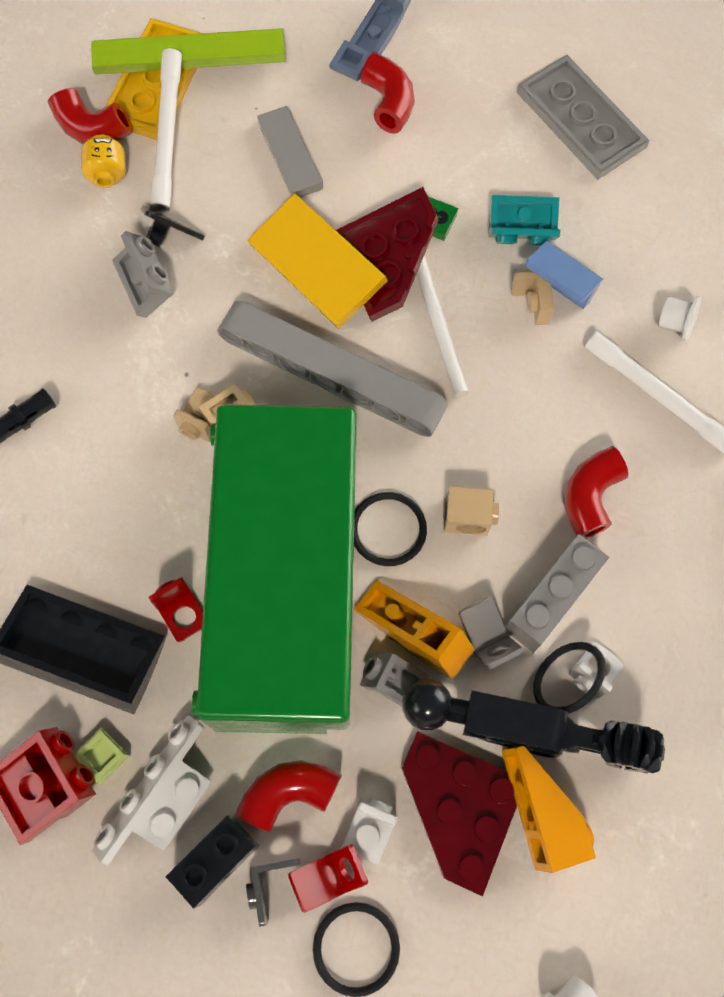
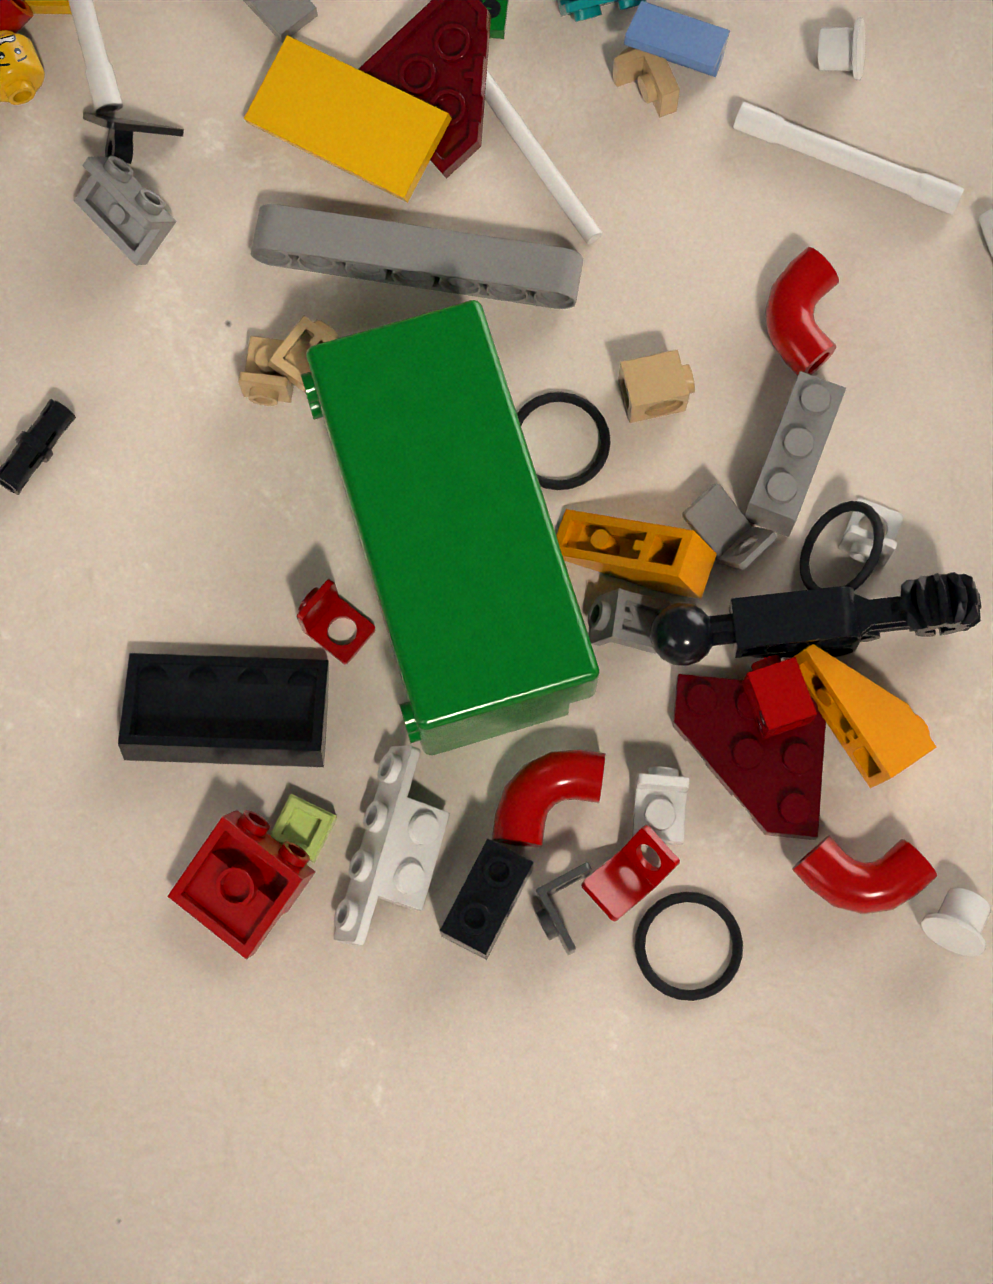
camera: 15 degrees left, 5 degrees up
(485, 776) = (778, 696): none -> red brick
(505, 949) = (868, 885): none -> red cylinder

